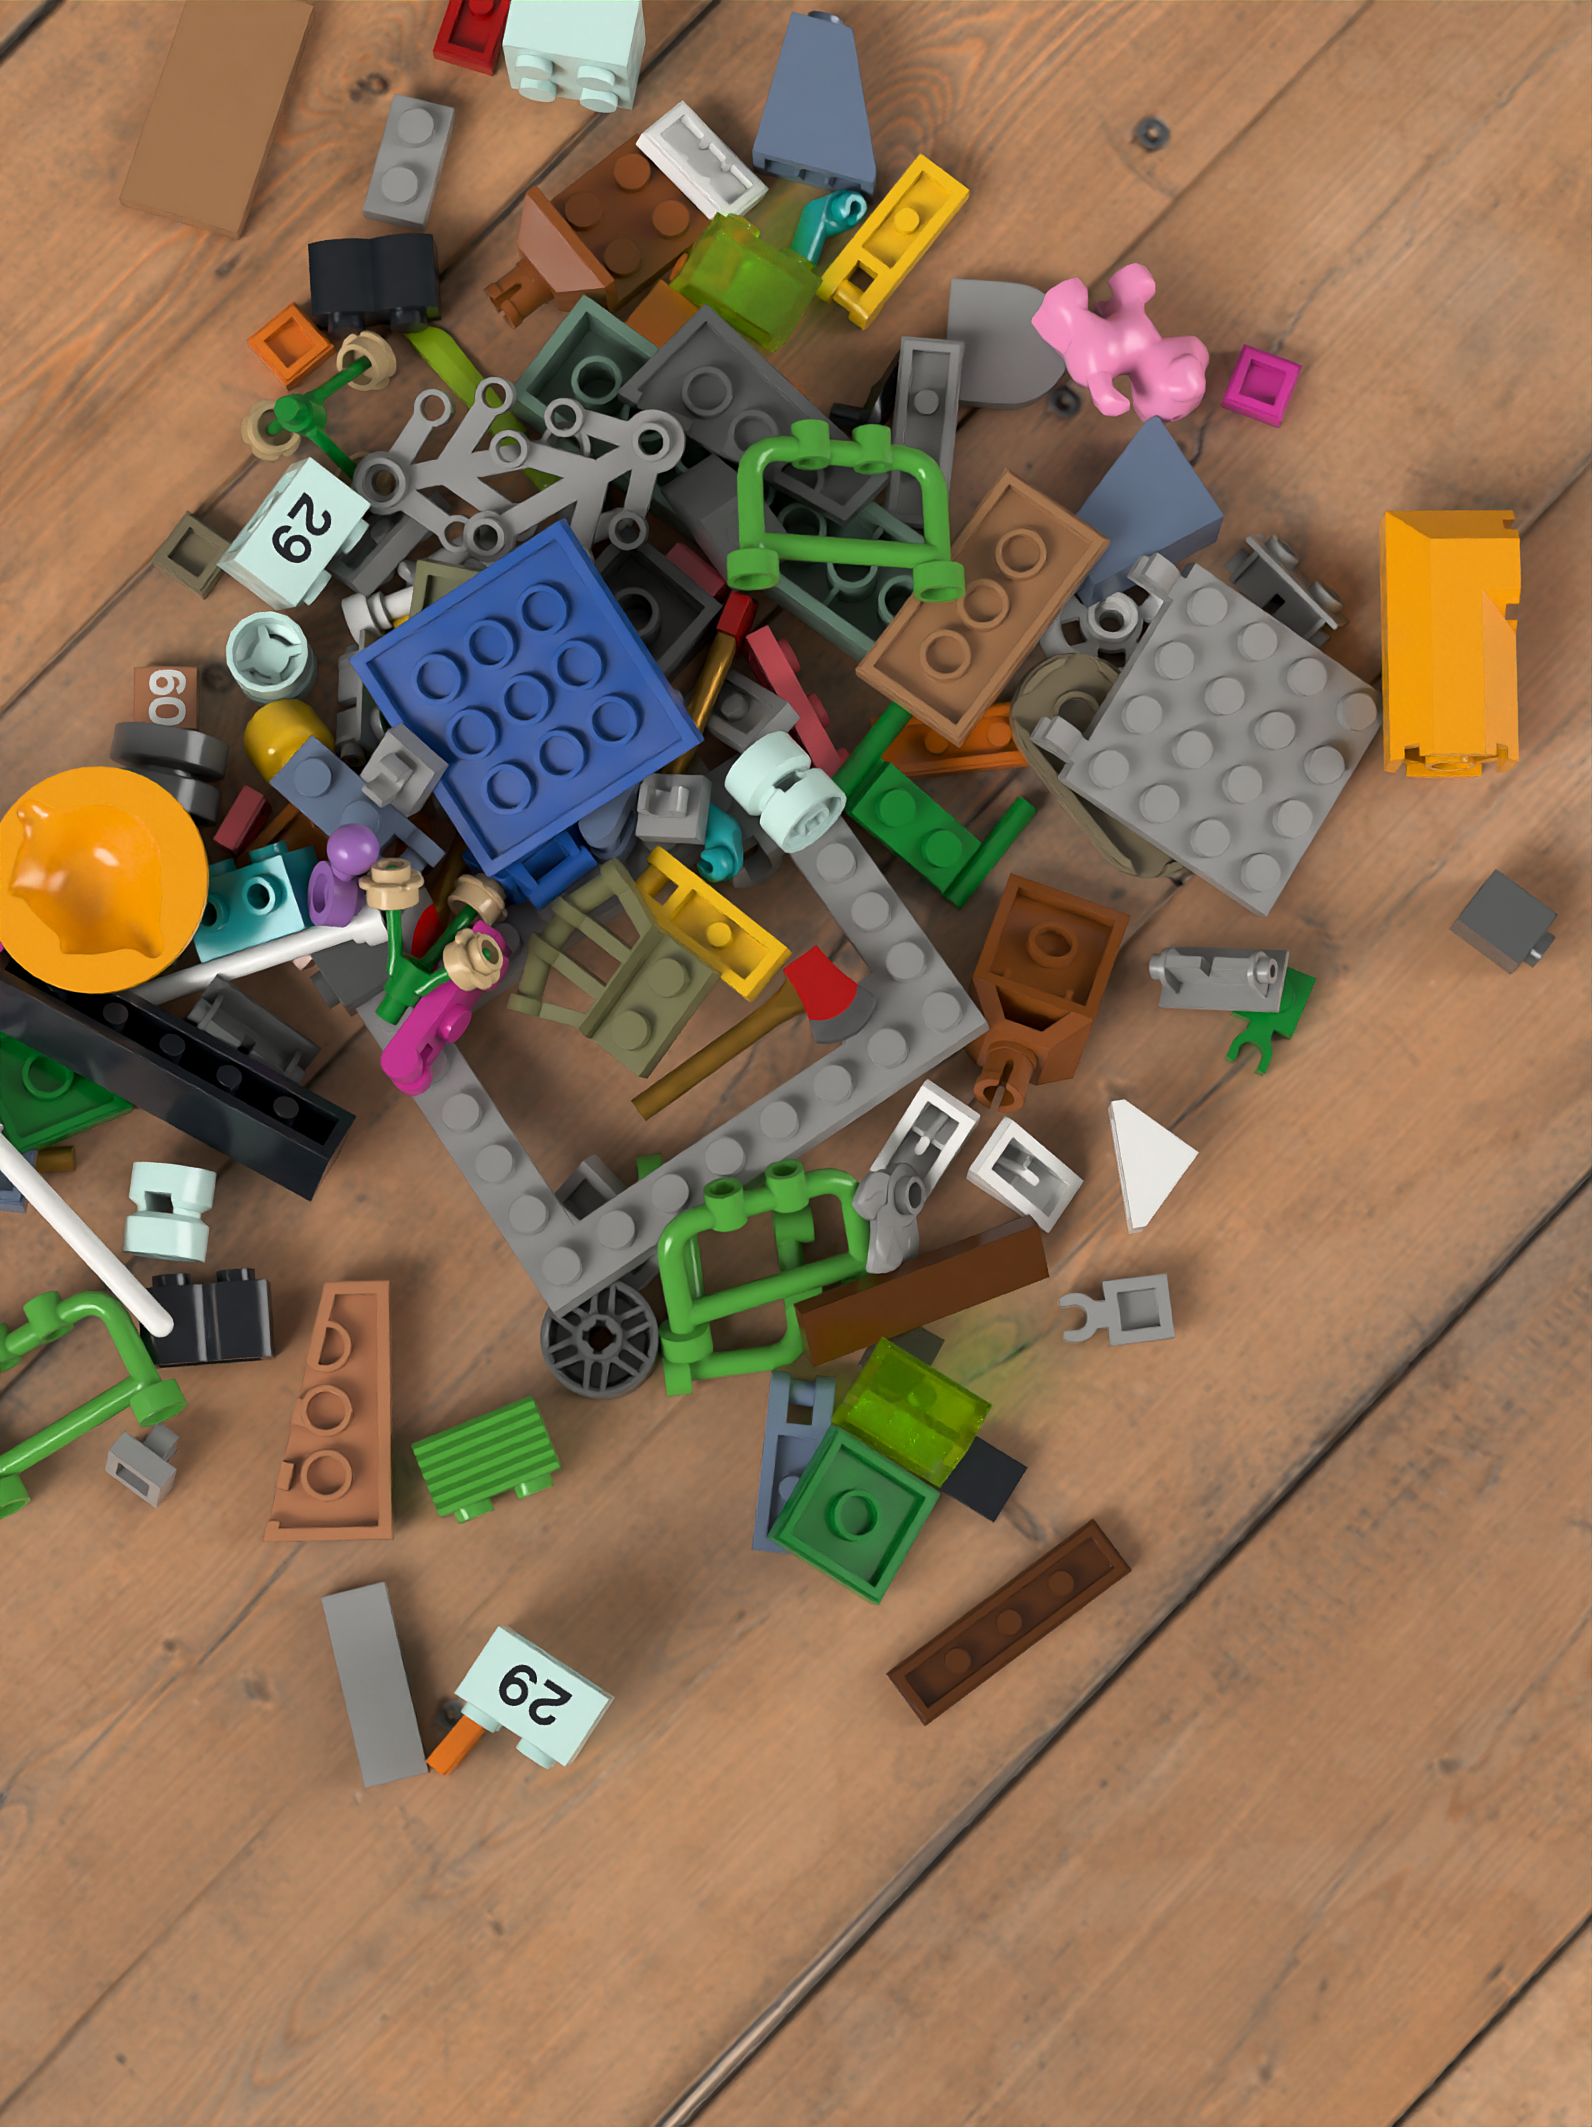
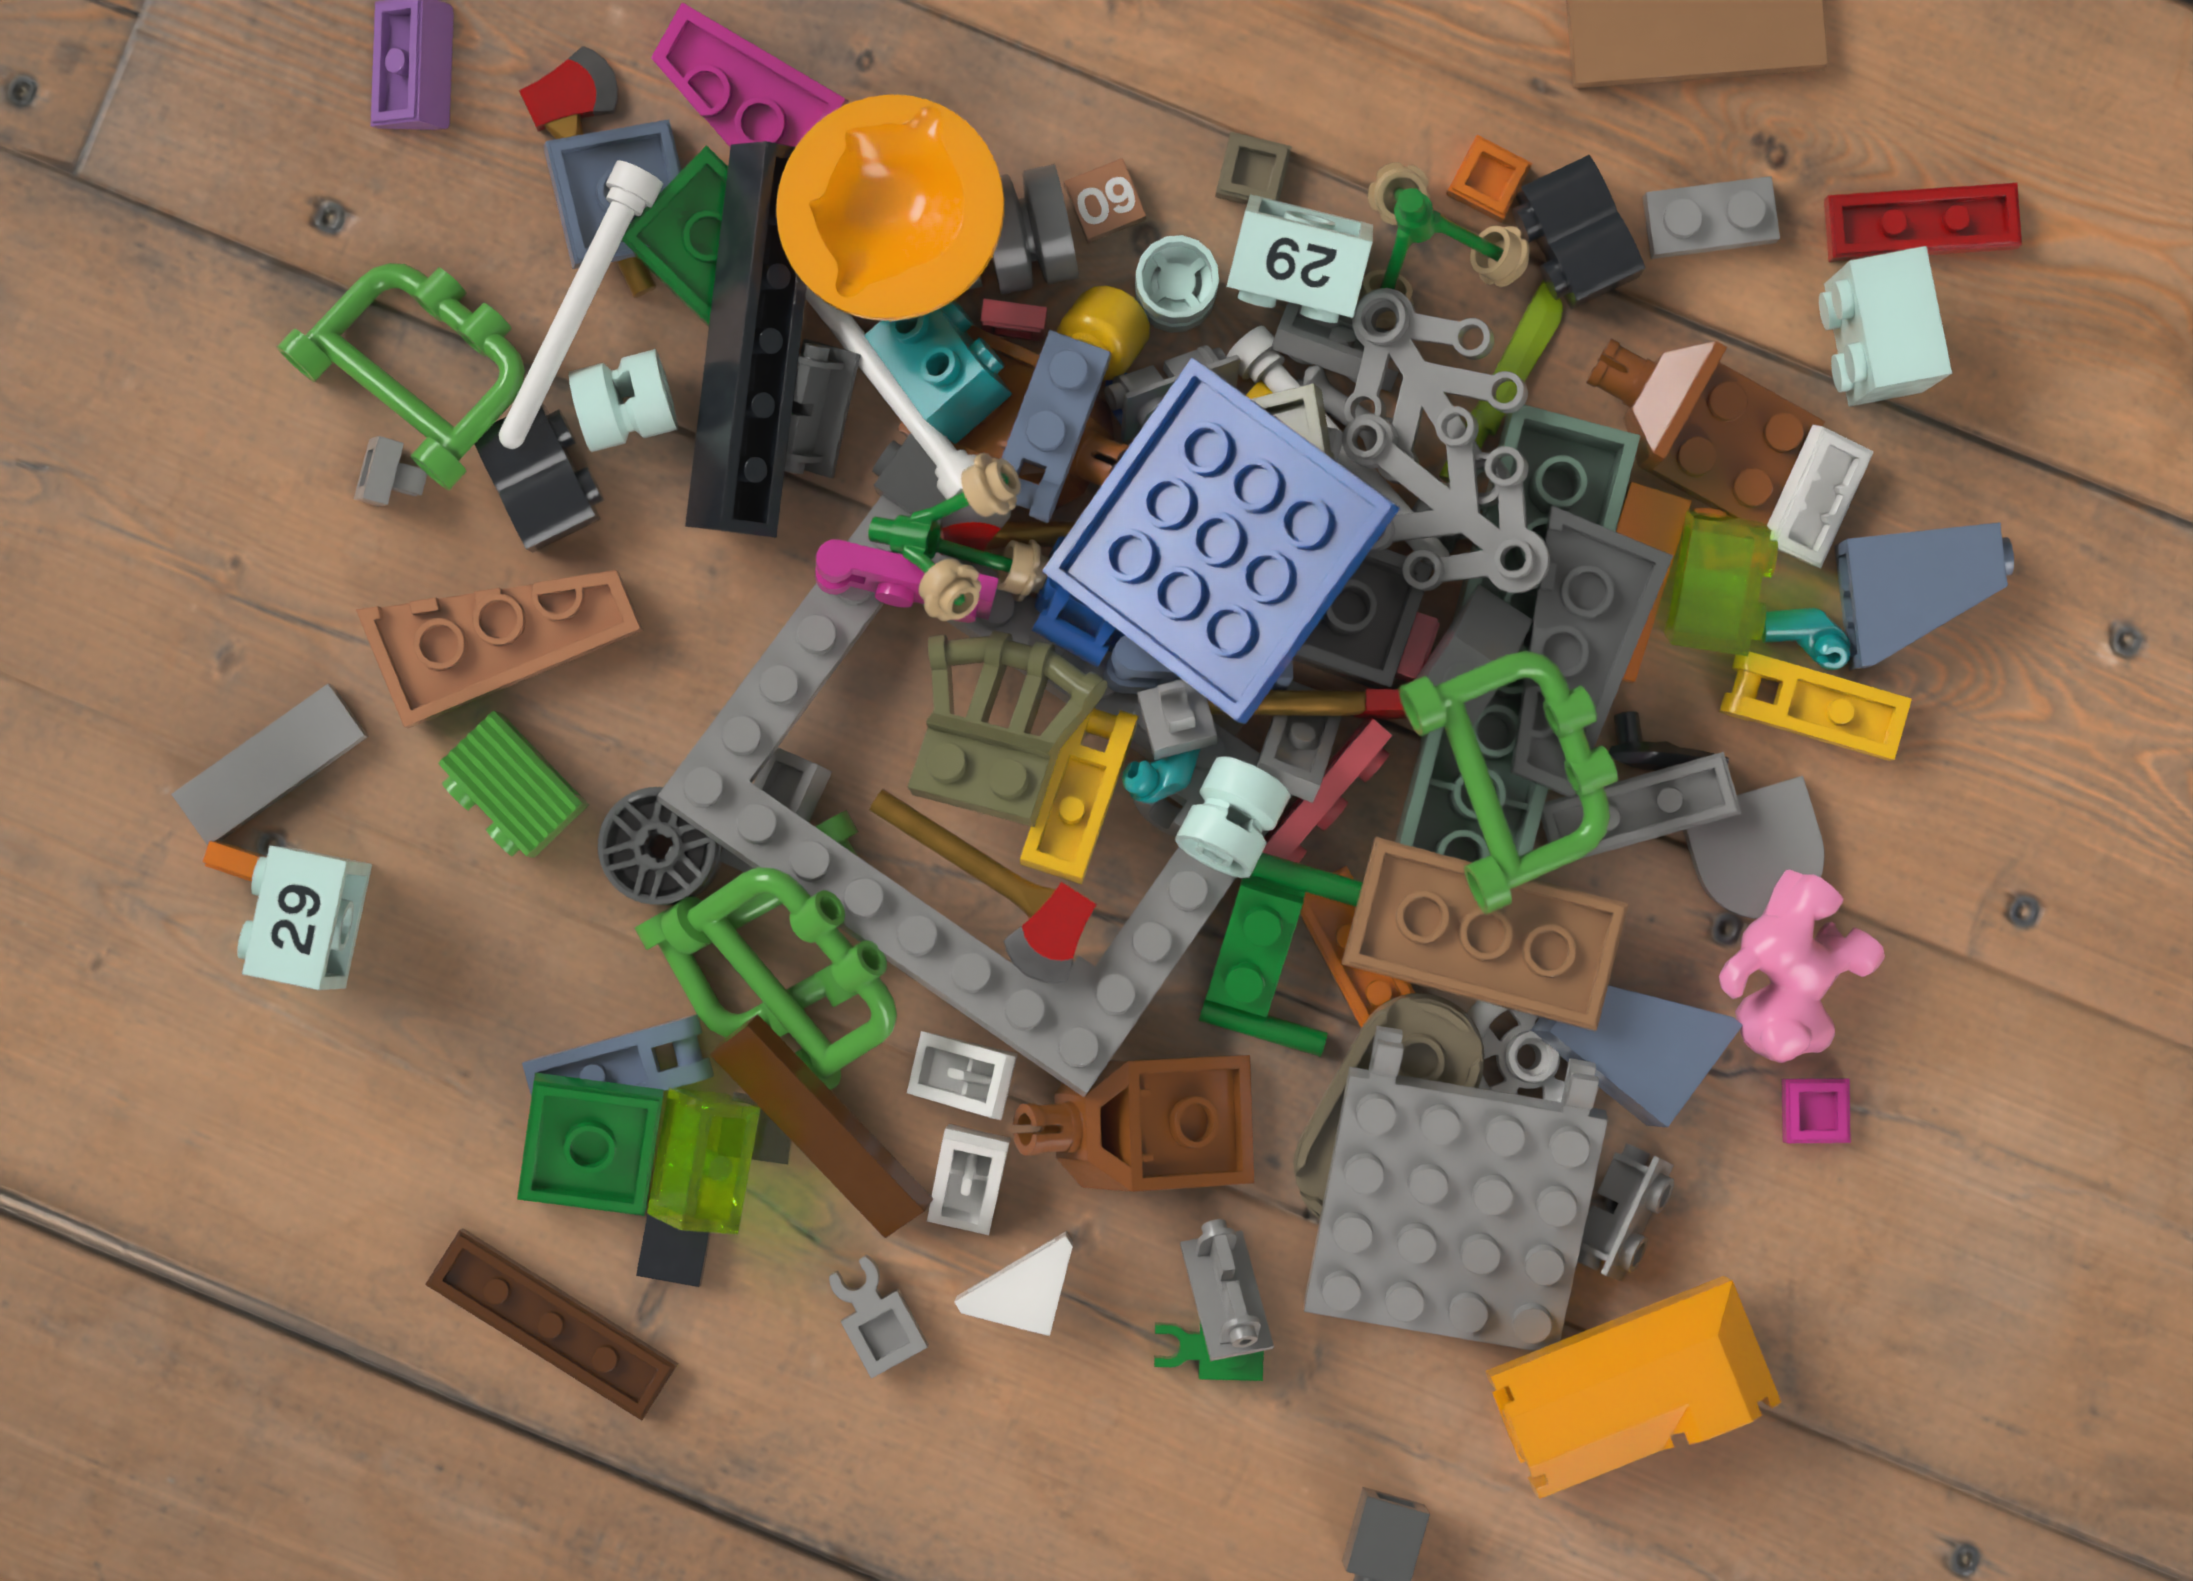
camera: 65 degrees right, 5 degrees up
(333, 885) = (978, 430): medium lavender plate -> none
(402, 771) = (1105, 450): light grey tile -> none
(890, 1203) = (885, 1067): light grey plate -> none

